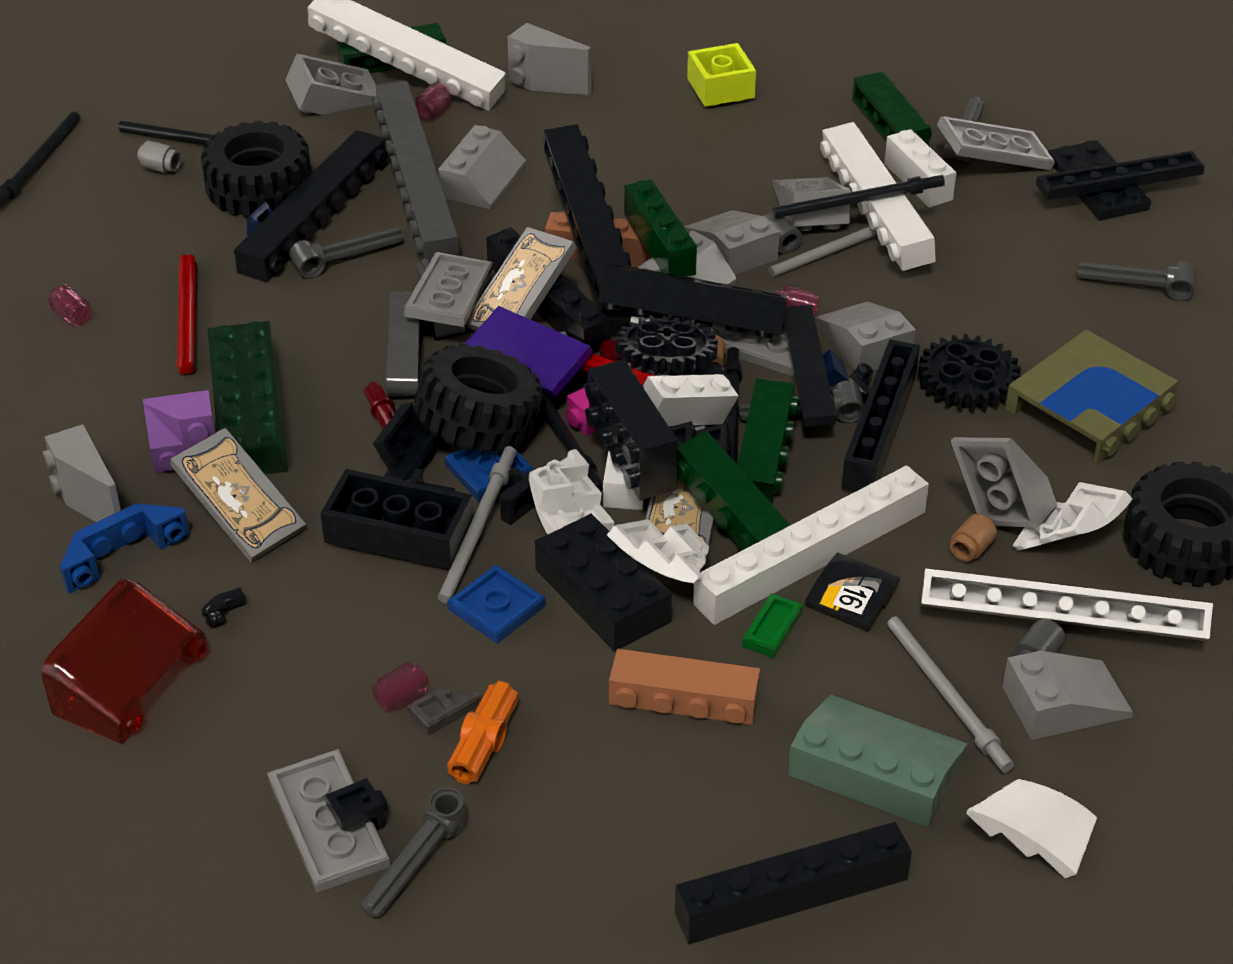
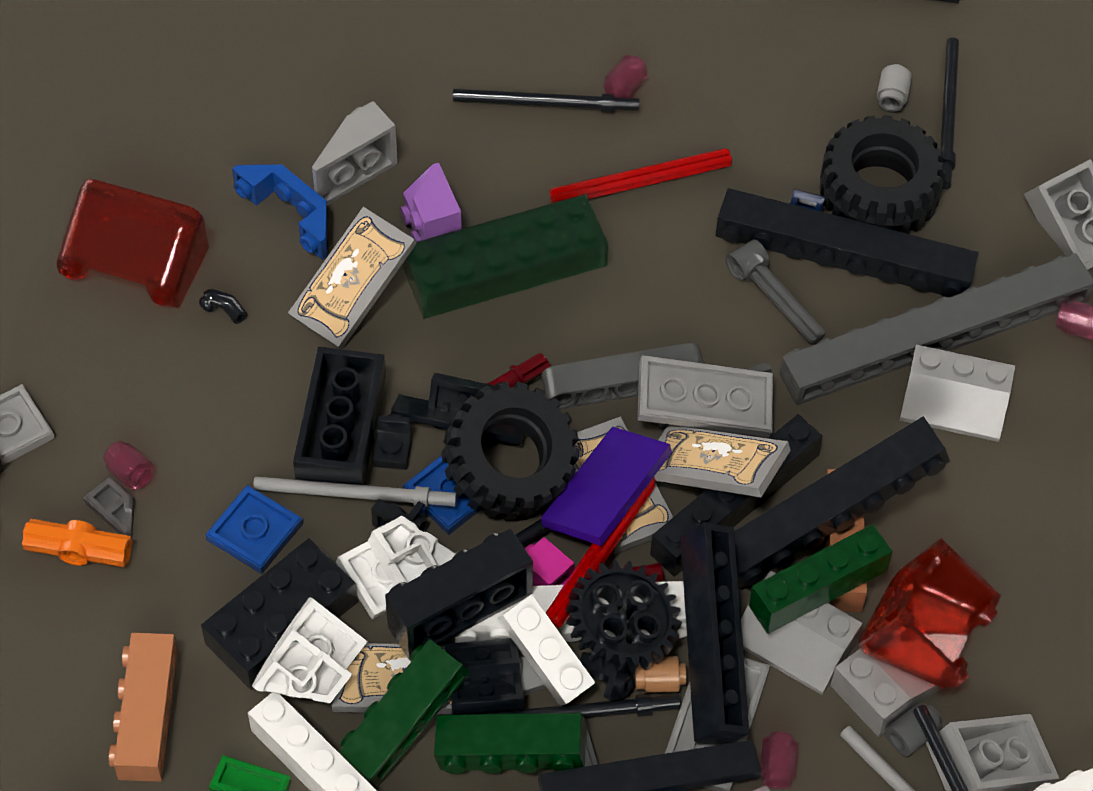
camera: 80 degrees right, 15 degrees up
(90, 324) = (606, 103): none -> black bar
(715, 204) = (930, 616): none -> clear red windscreen

